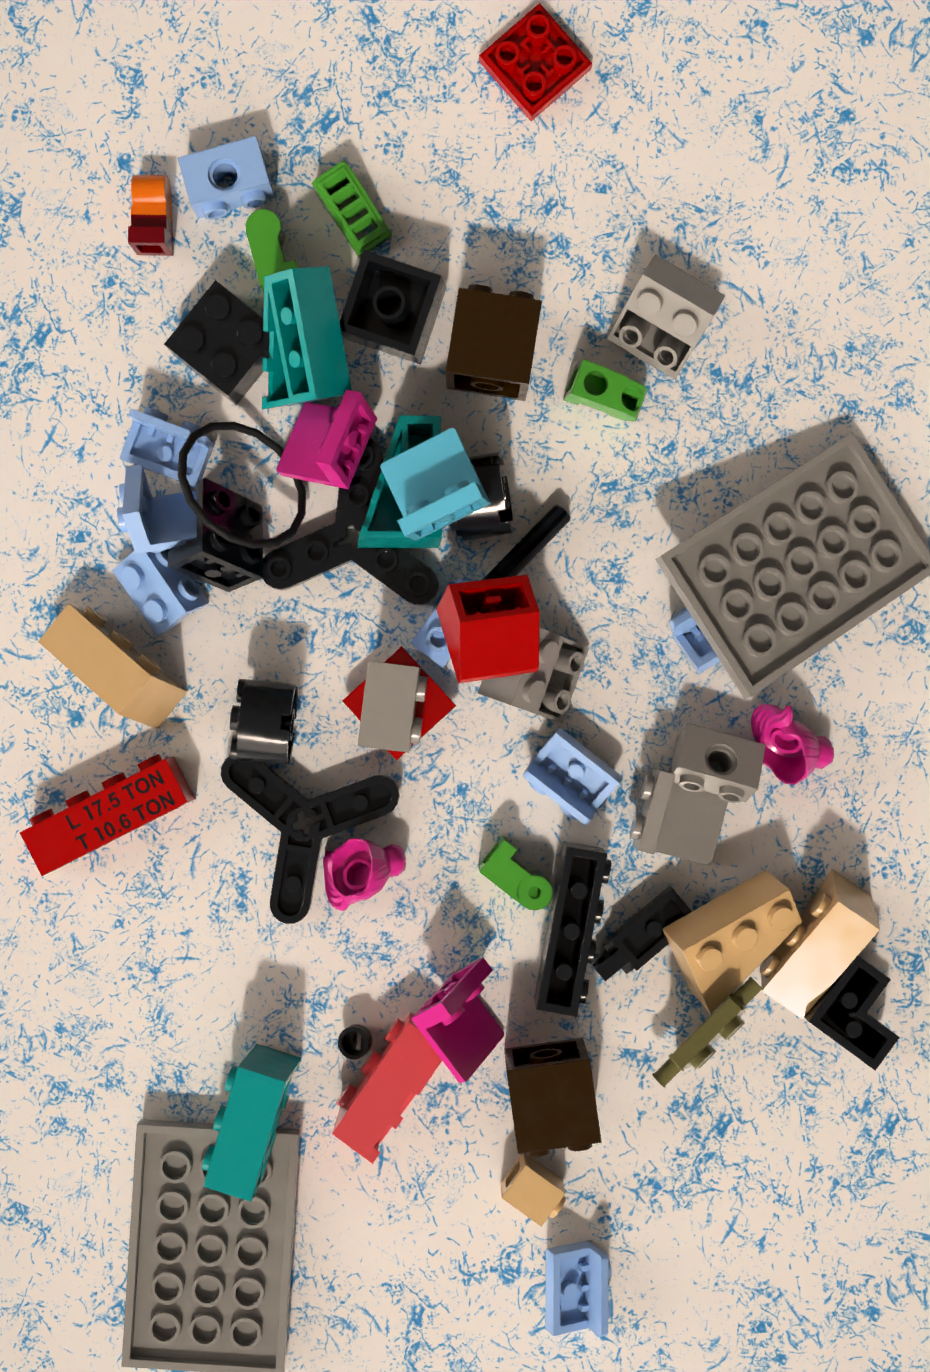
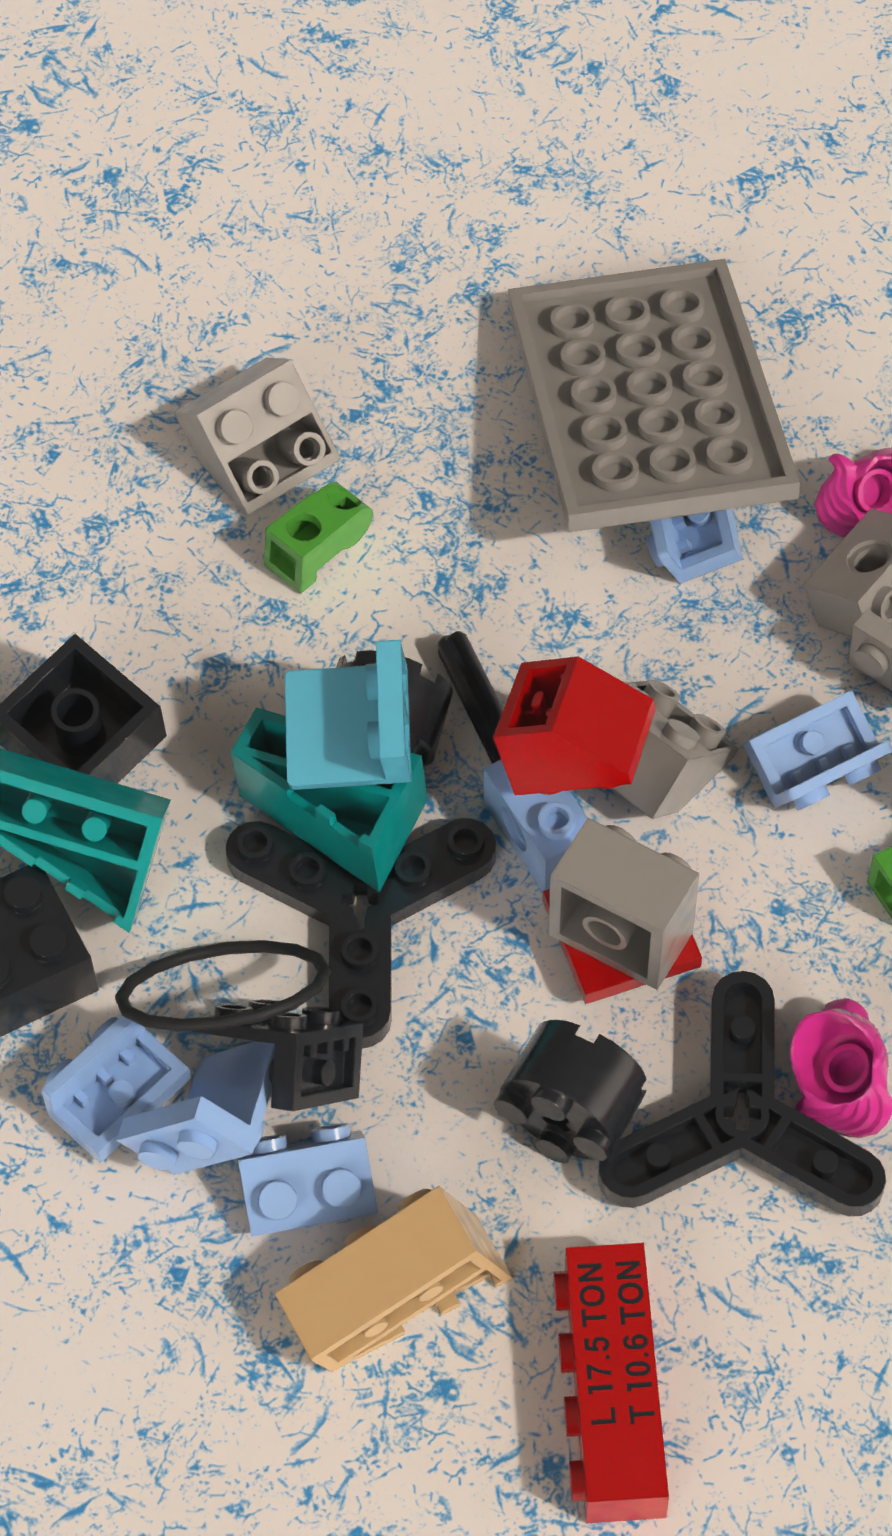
camera: 70 degrees left, 30 degrees down
(328, 441) = (216, 870): dark pink bracket -> none
(492, 342) = (192, 621): dark brown brick -> none

